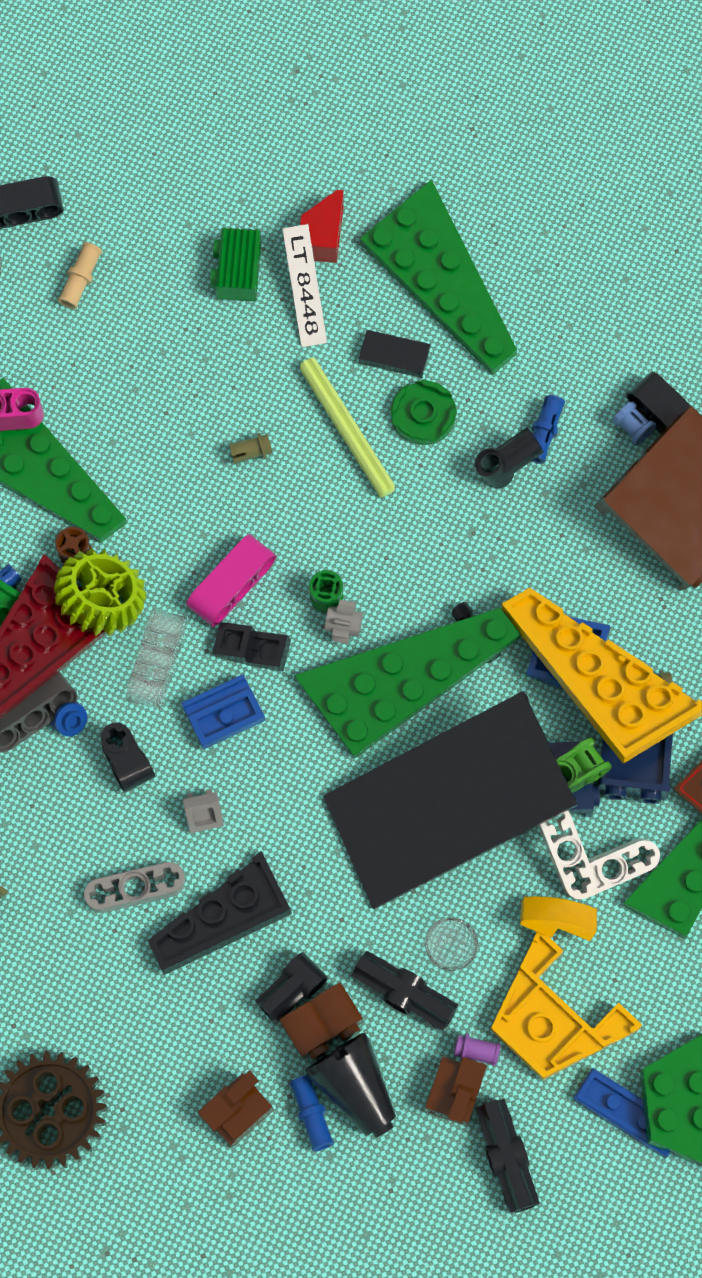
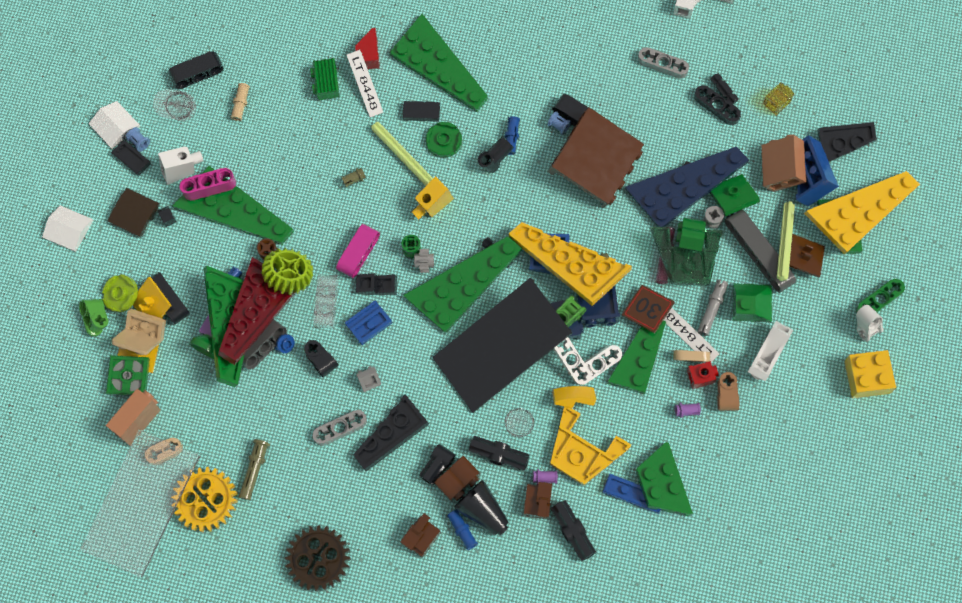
camera: 10 degrees left, 0 degrees up
(380, 515) = (432, 199): none -> yellow torso

